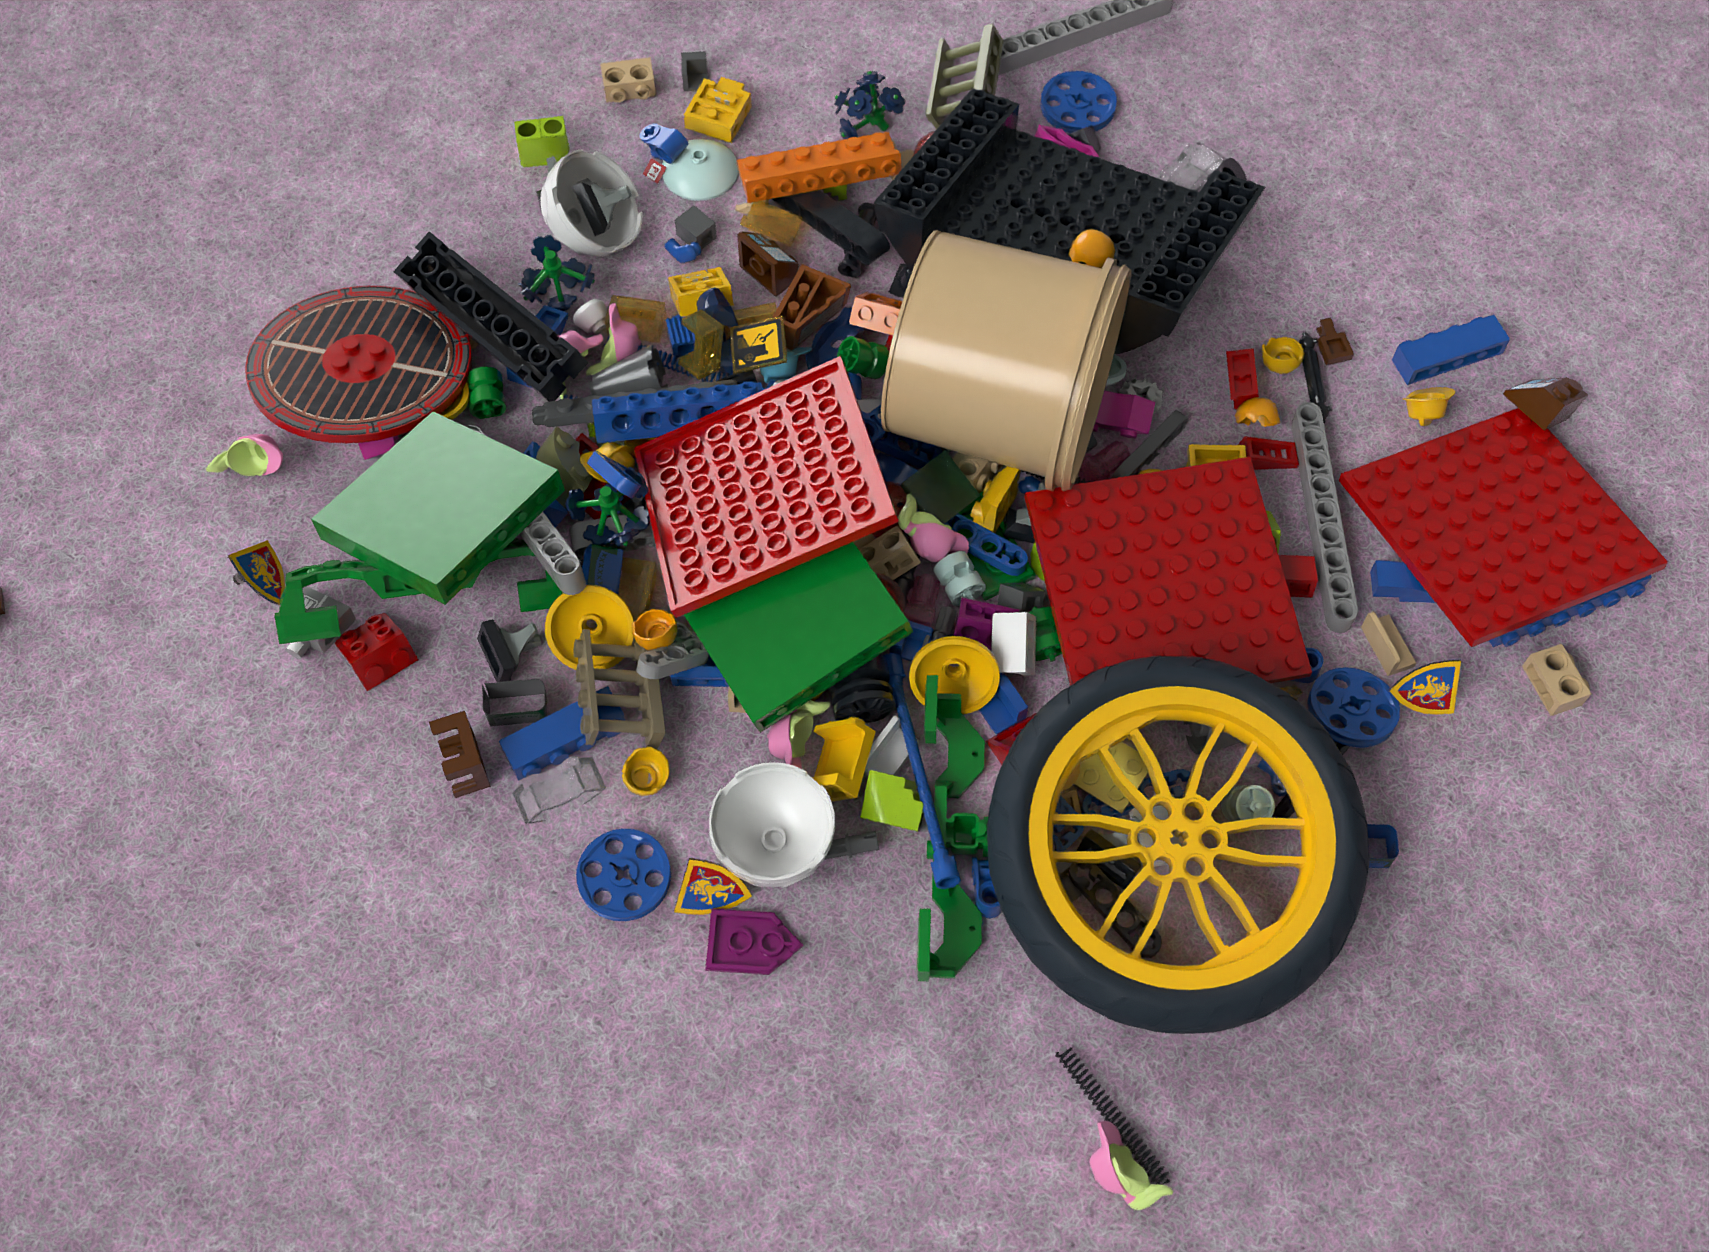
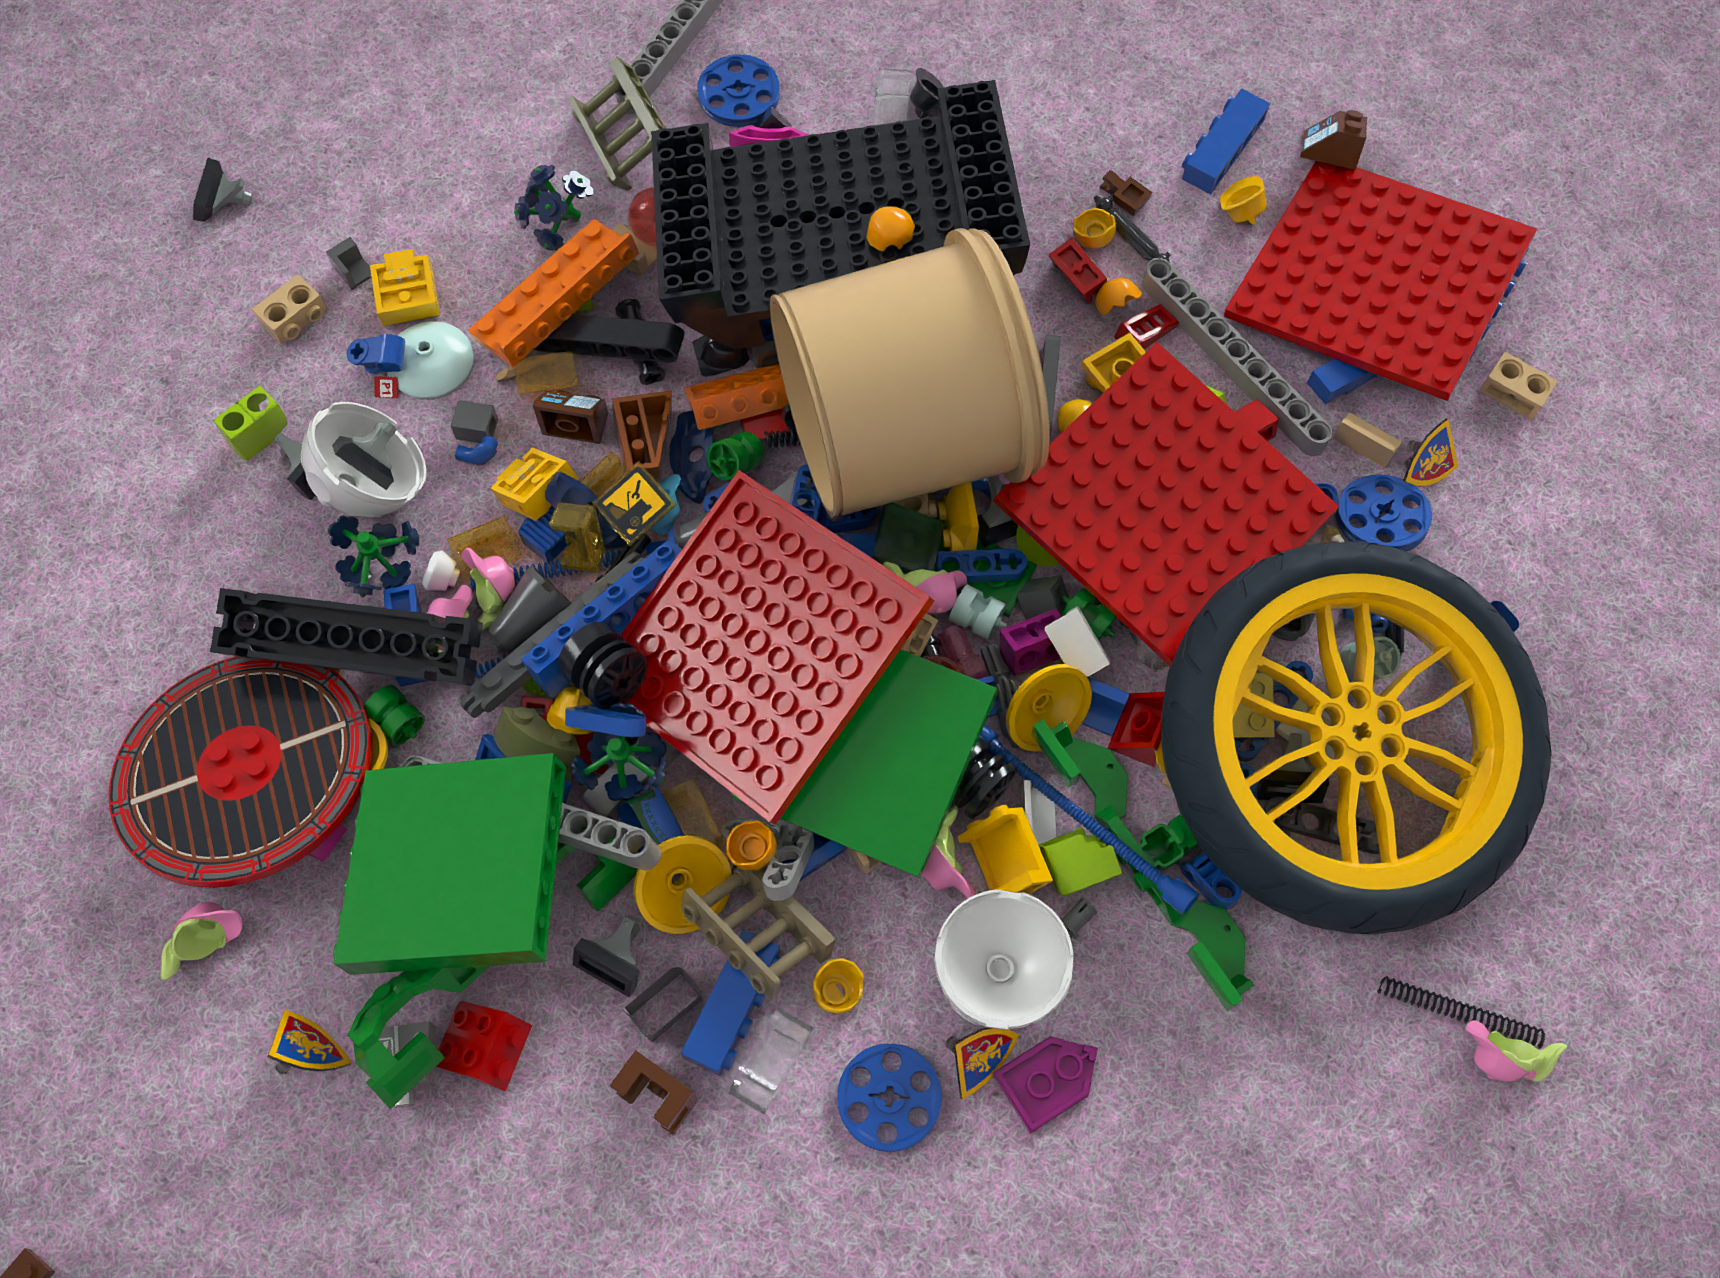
camera: 35 degrees left, 5 degrees up
(643, 436) = (602, 665): none -> black wheel

